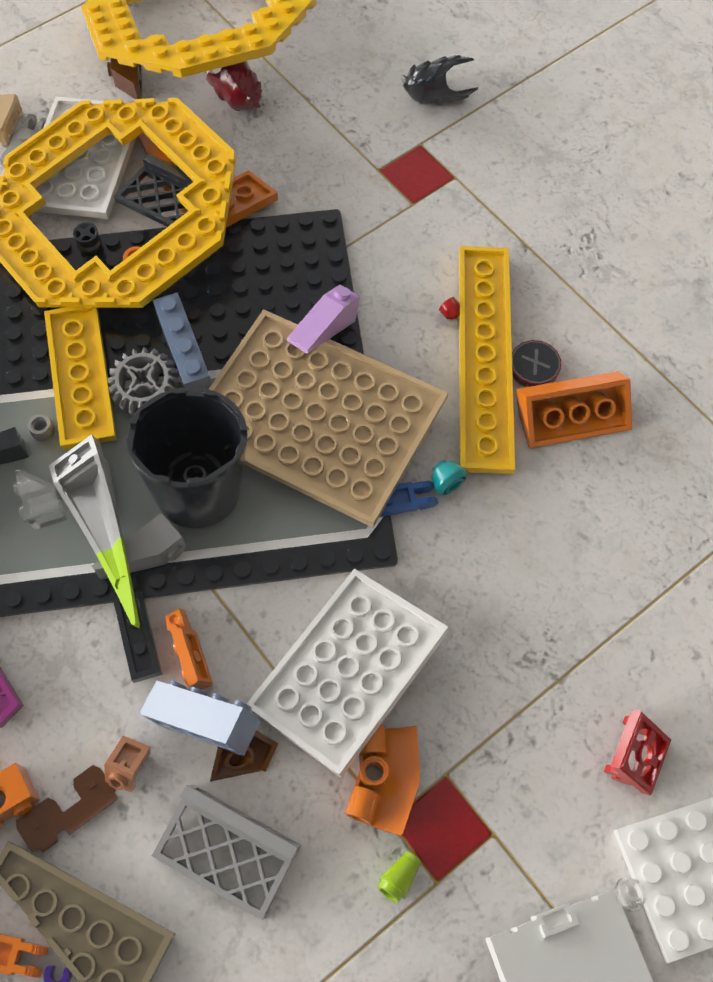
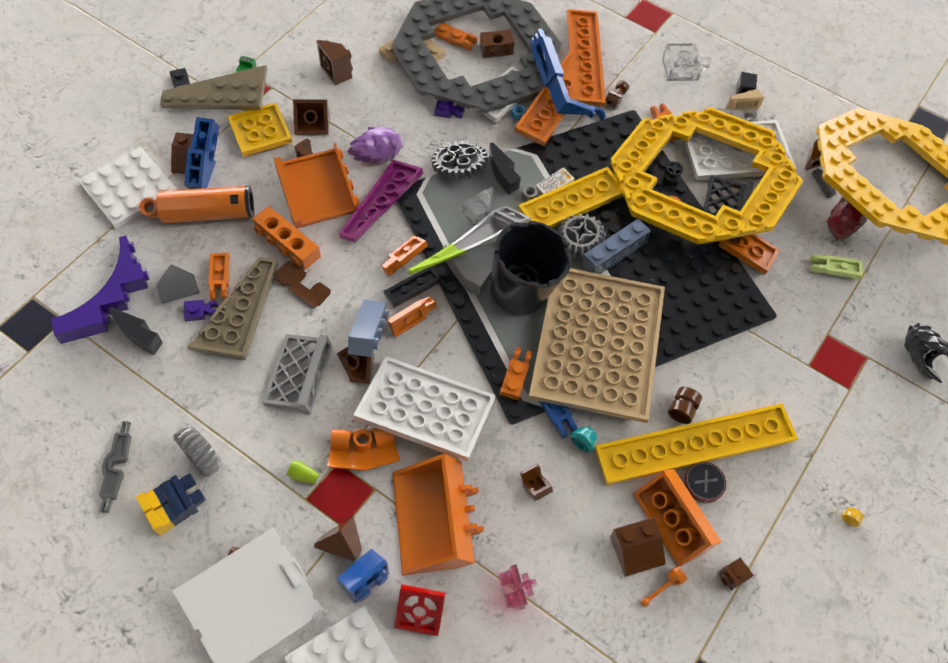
camera: 70 degrees right, 5 degrees down
(38, 388) = (555, 181): none -> white tile
(76, 633) = (404, 254): none -> orange hinge
(125, 763) = (334, 303): nougat bracket -> none
(170, 89) = (828, 191): none -> dark grey axle
(294, 122) = (836, 266): none -> yellowish green hinge
(327, 318) = (672, 325): lavender slope -> none
(330, 532) = (515, 375): none -> orange hinge
(436, 349) = (685, 405): none -> reddish brown wheel
(450, 308) = (725, 409): red hinge -> none
(494, 555) = (535, 482): none -> reddish brown bracket
(510, 703) = (434, 516): none -> orange piece
(516, 841) = (341, 540): none -> reddish brown slope
(581, 818) = (364, 575): none -> blue slope
(601, 463) = (638, 546): none -> reddish brown slope
(612, 234) = (853, 516): none -> yellow axle
(628, 615) = (518, 597): none -> clear pink hips
(647, 436) = (675, 577): none -> orange hinge
(653, 373) = (735, 574): none -> reddish brown bracket

